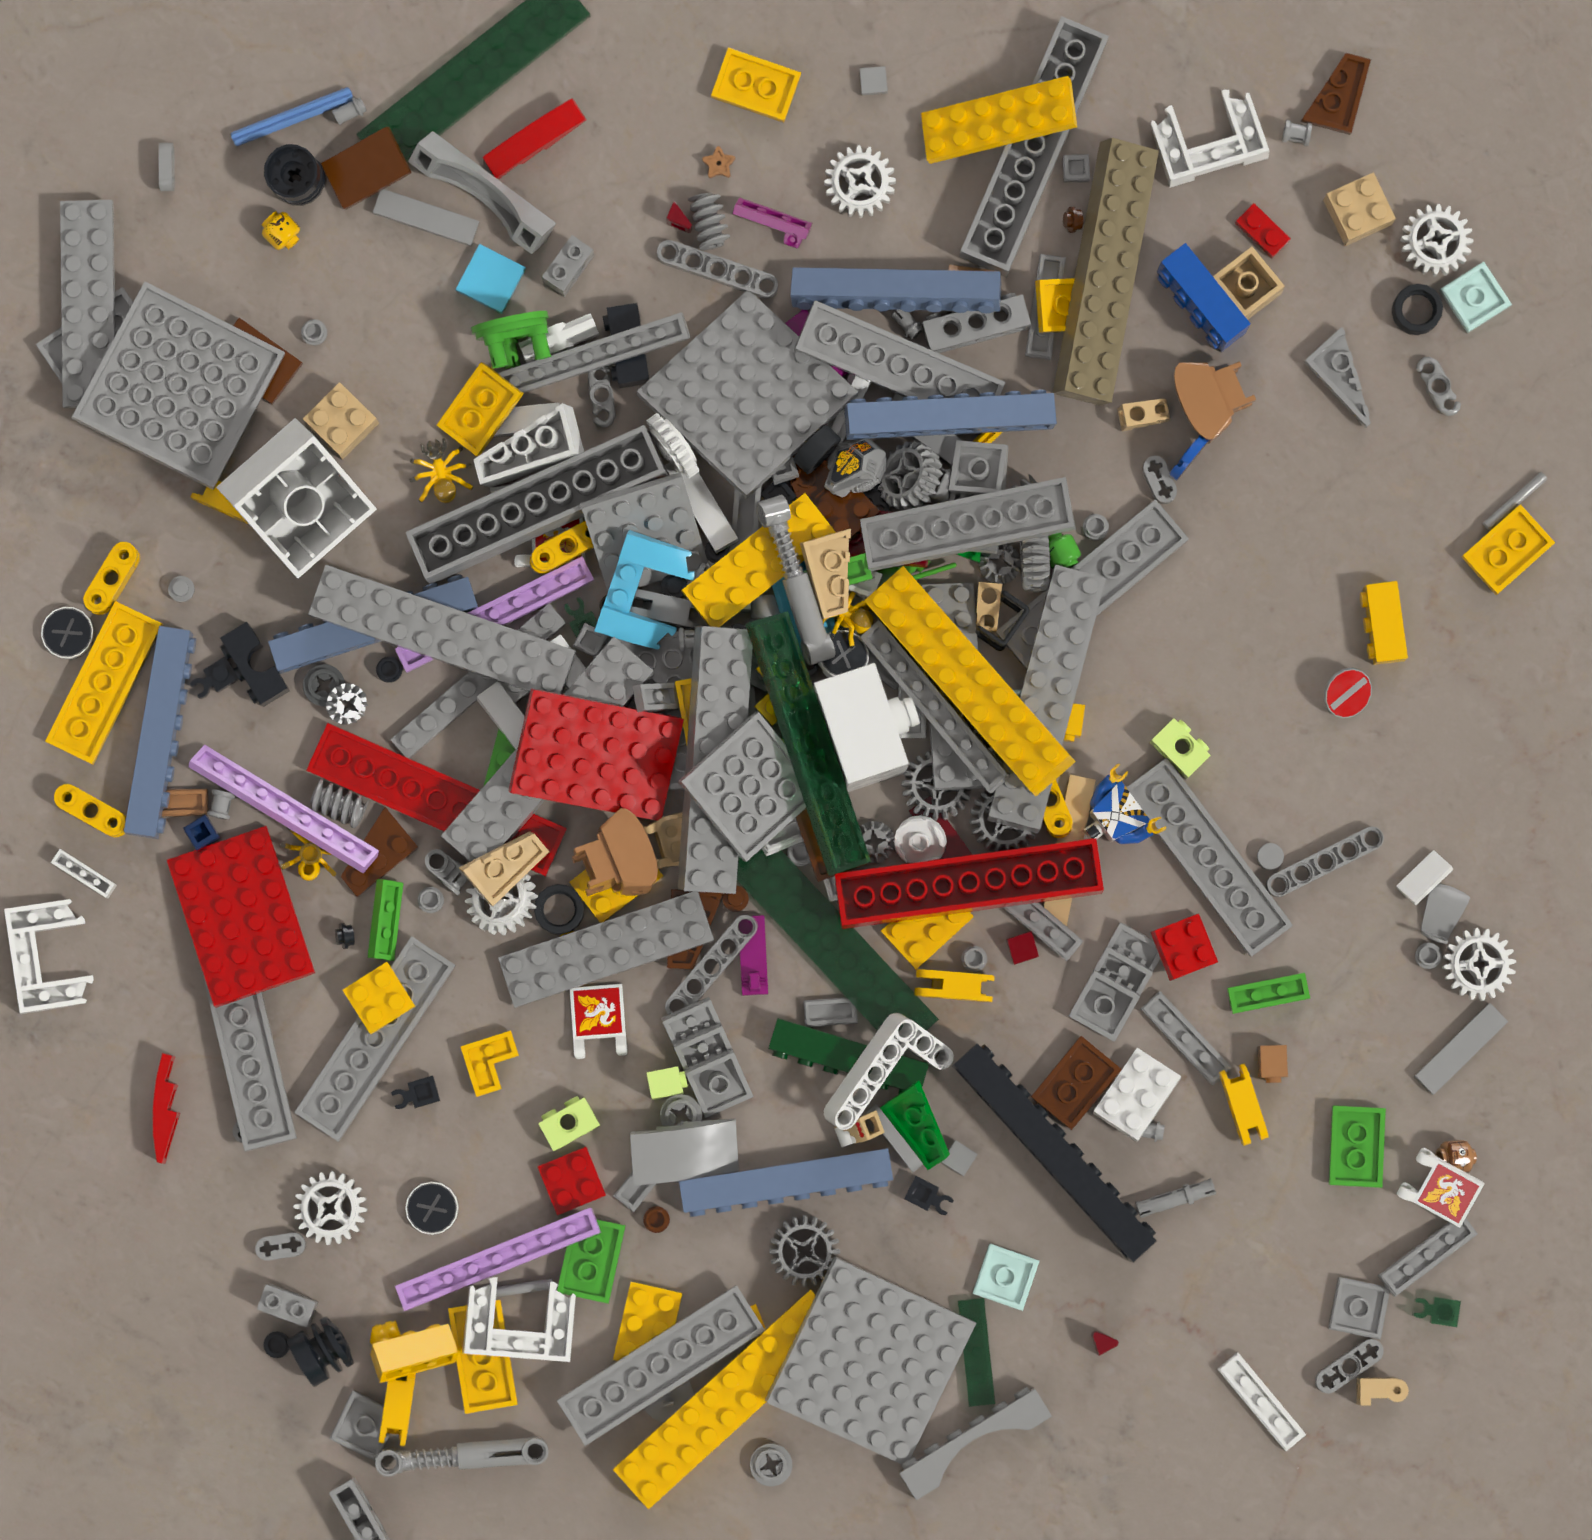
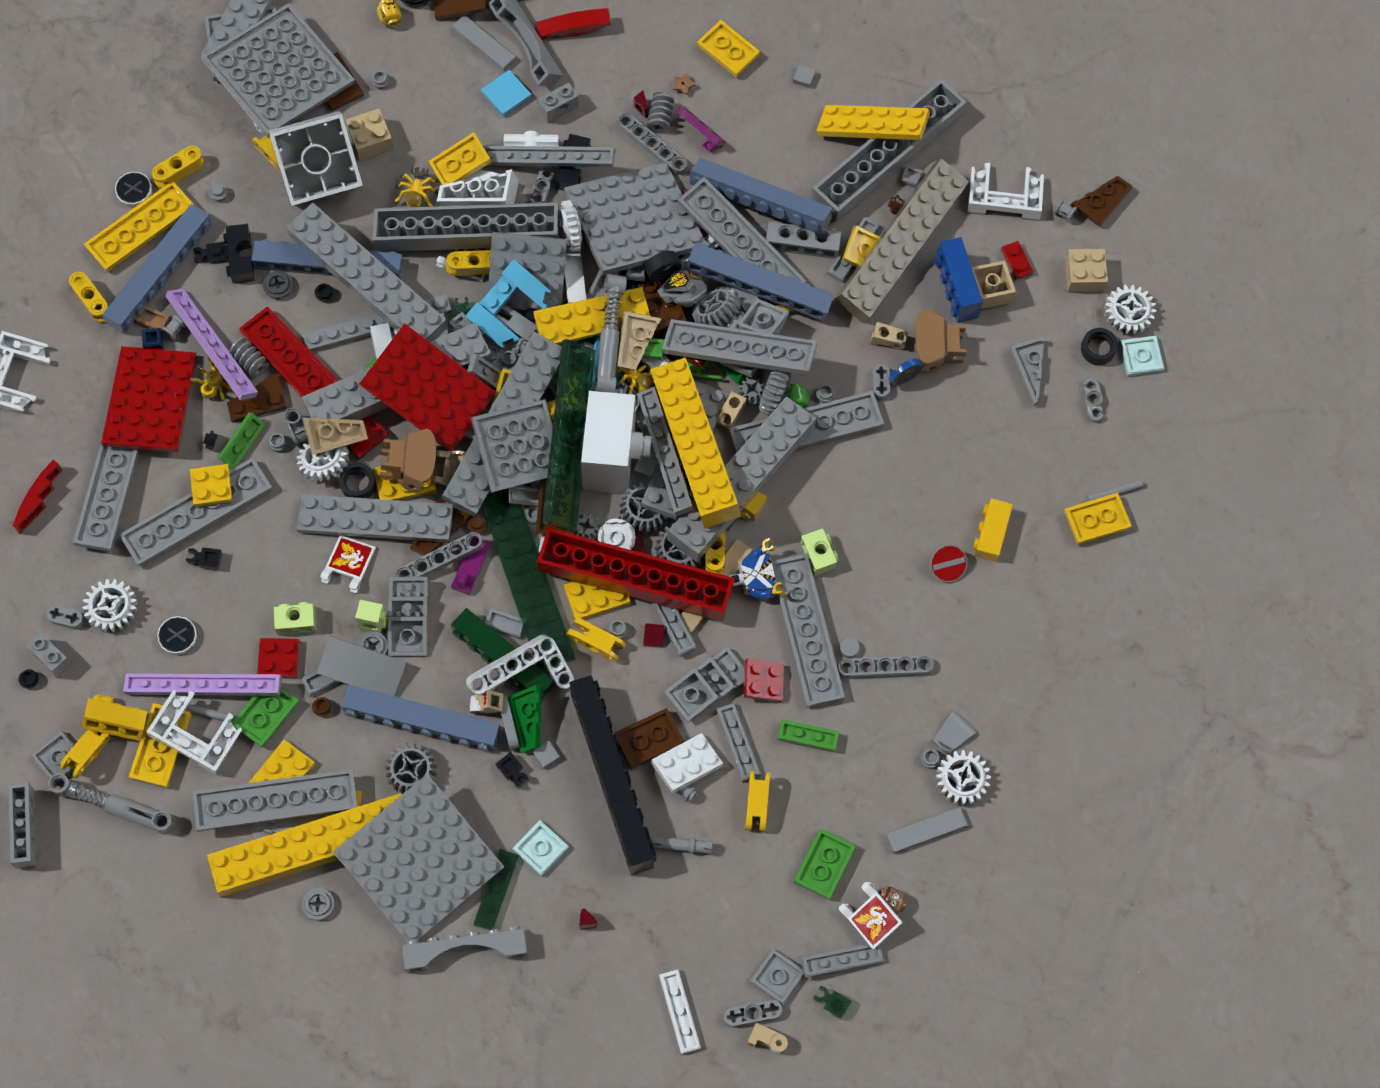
camera: 25 degrees right, 15 degrees down
(83, 873) = (65, 333): white piece -> none
(319, 1352) = (55, 691): black wheel -> none
(346, 692) = (276, 299): light grey gear -> none
(482, 1056) = (261, 552): yellow plate -> none
(504, 333) = (502, 118): bright green piece -> none
(519, 602) = (426, 285): lavender plate -> none
(850, 174) = (768, 120): white gear -> none
(907, 323) = (760, 225): light grey pin -> none
(989, 635) = (747, 420): black piece -> none
(1272, 1063) = (790, 782): medium nougat brick -> none
(1424, 877) = (949, 705): white tile -> none

